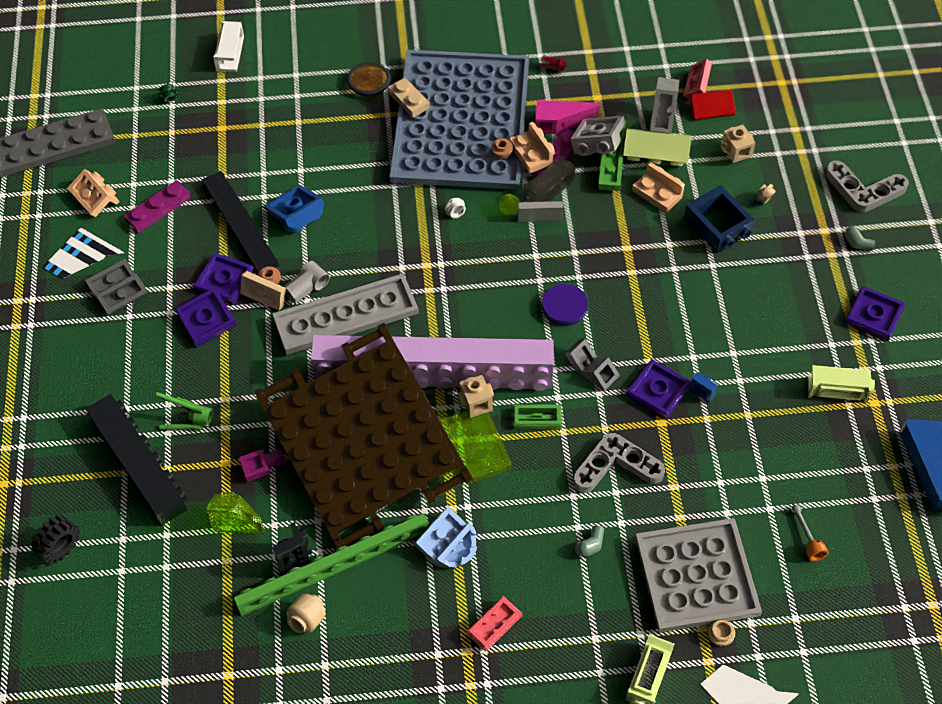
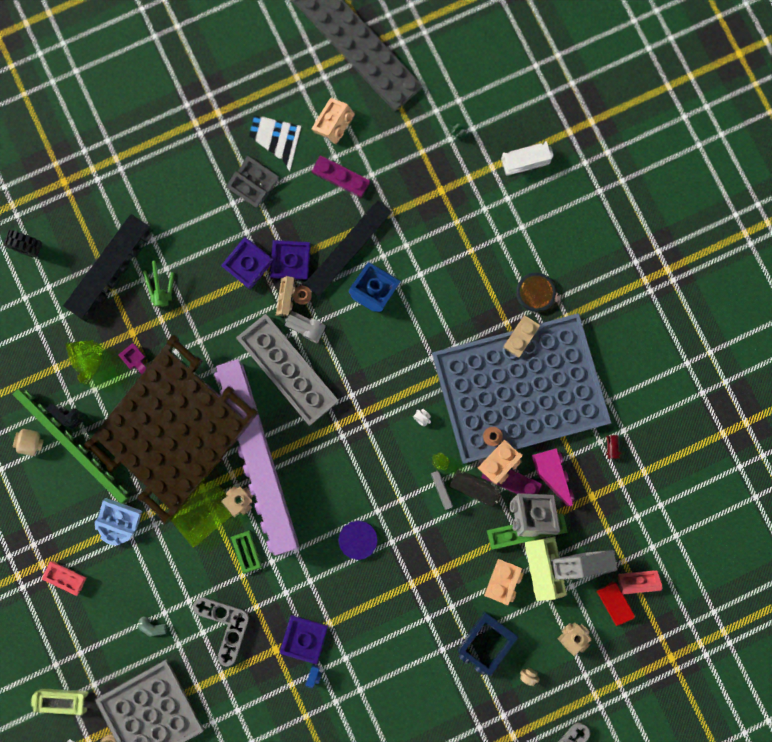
camera: 65 degrees right, 25 degrees up
(595, 369) = (305, 580): dark grey slope -> none

